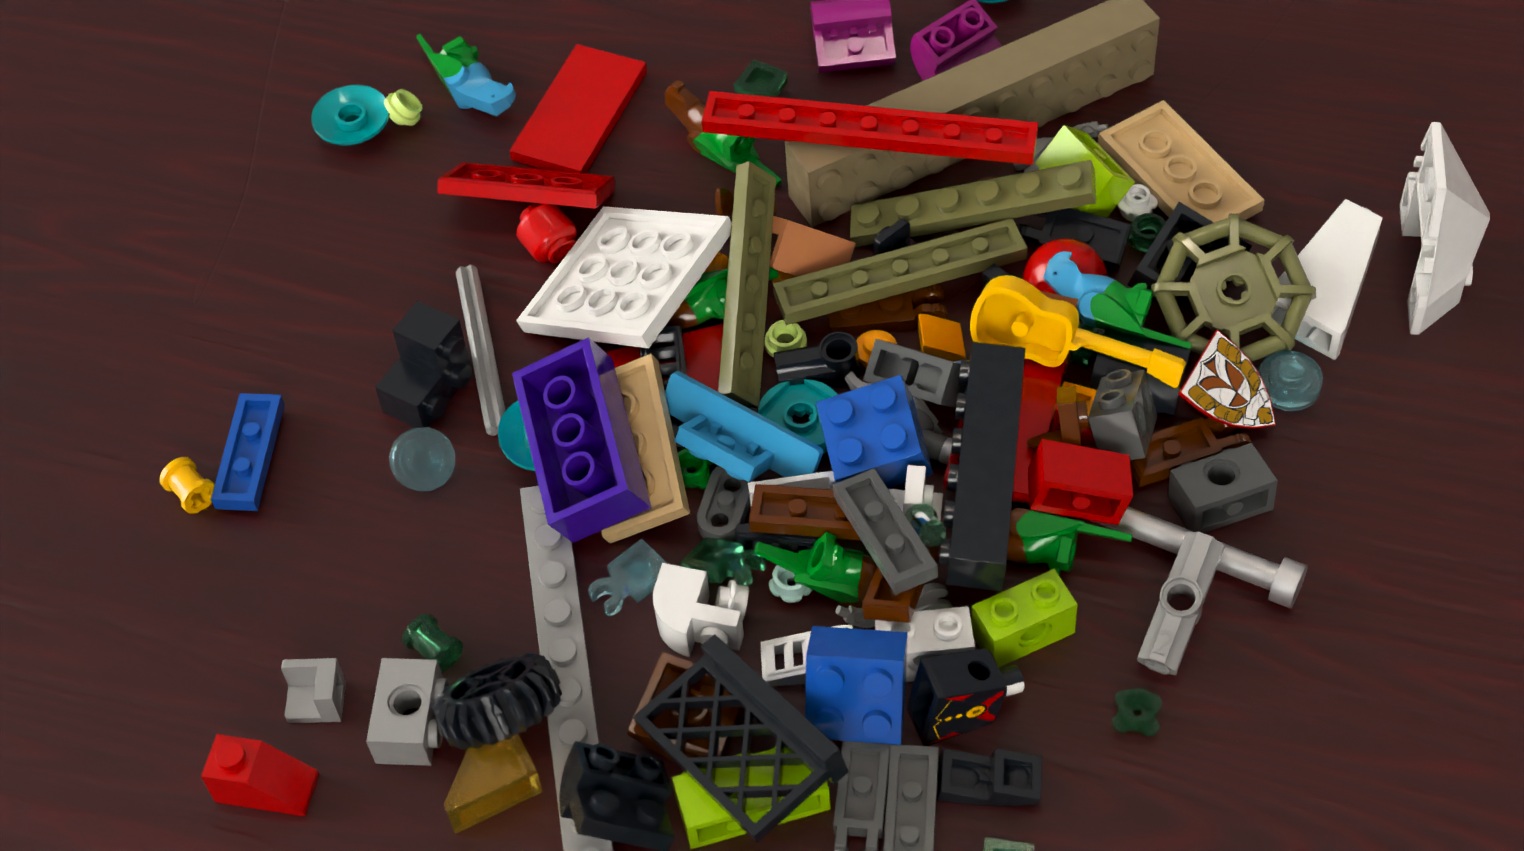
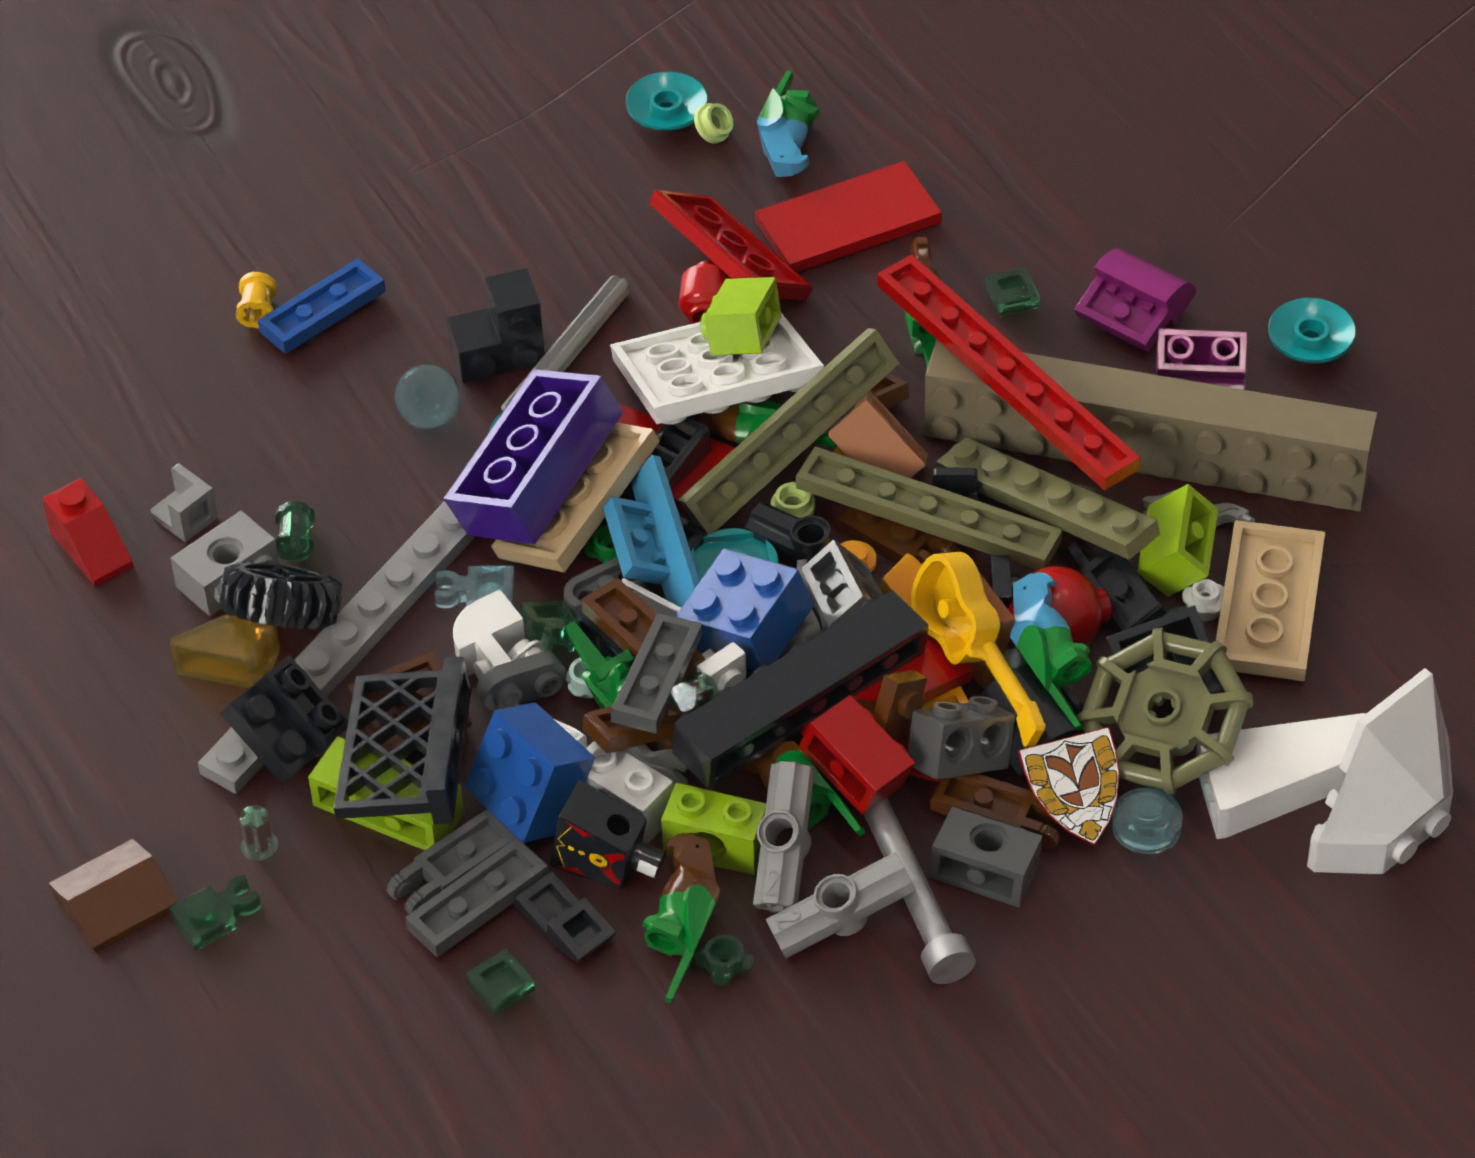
camera: 40 degrees right, 5 degrees down
(613, 226) = (742, 316): none -> lime brick
(749, 630) = (521, 681): none -> dark grey plate
(1076, 694) = (684, 904): none -> green animal
(1108, 610) = (786, 807): none -> light grey piece

